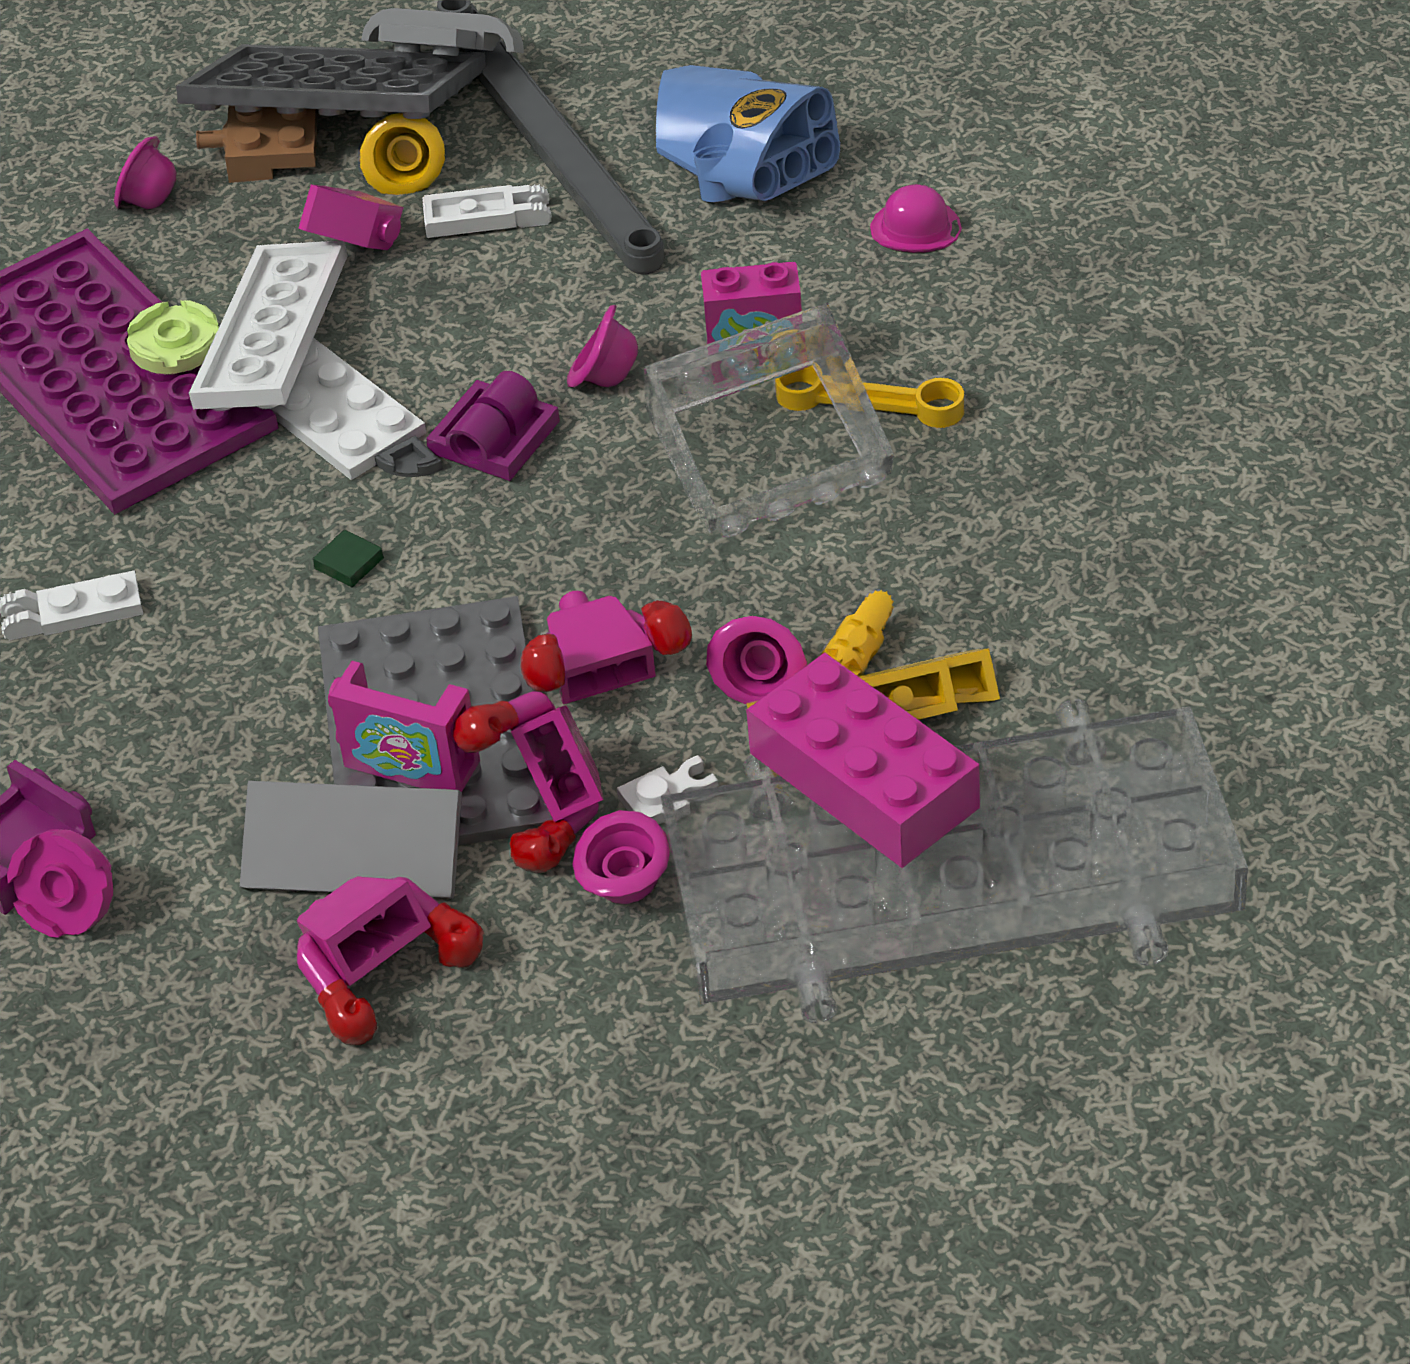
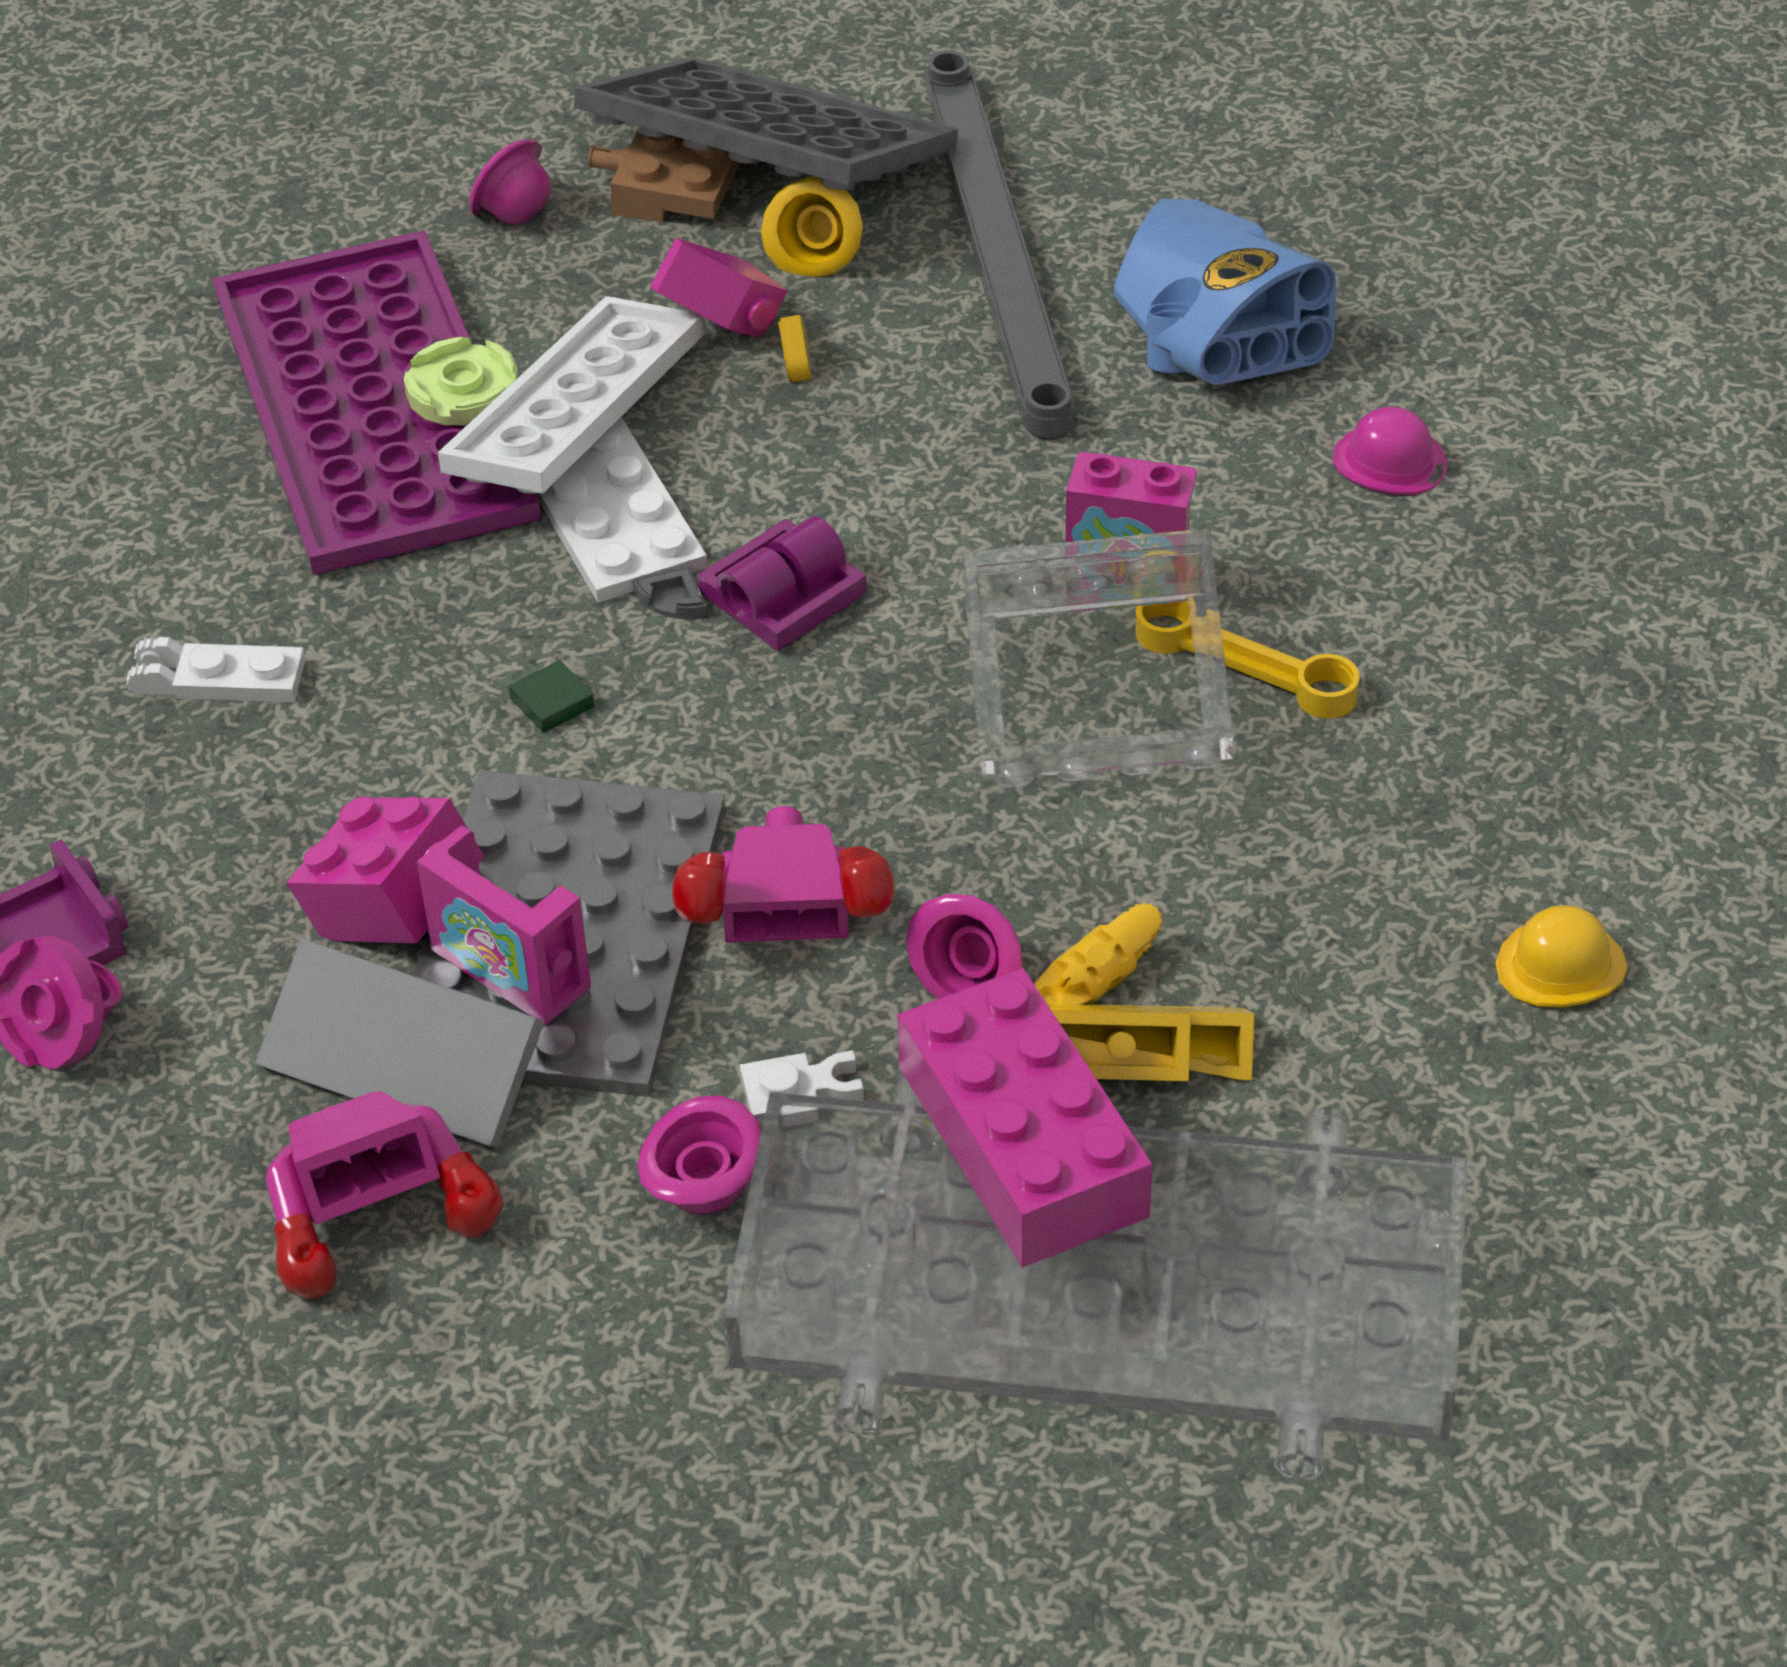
camera: 15 degrees right, 0 degrees up
(280, 716) = (365, 870): none -> dark pink brick
(426, 250) = (795, 348): none -> yellow tile
(440, 29) = (915, 93): light grey plate -> none
(485, 210) = (885, 317): white hinge -> none
(556, 762) = (670, 1013): dark pink torso -> none
(606, 355) = (951, 525): dark pink hat -> none
(1189, 554) = (1561, 959): none -> yellow hat

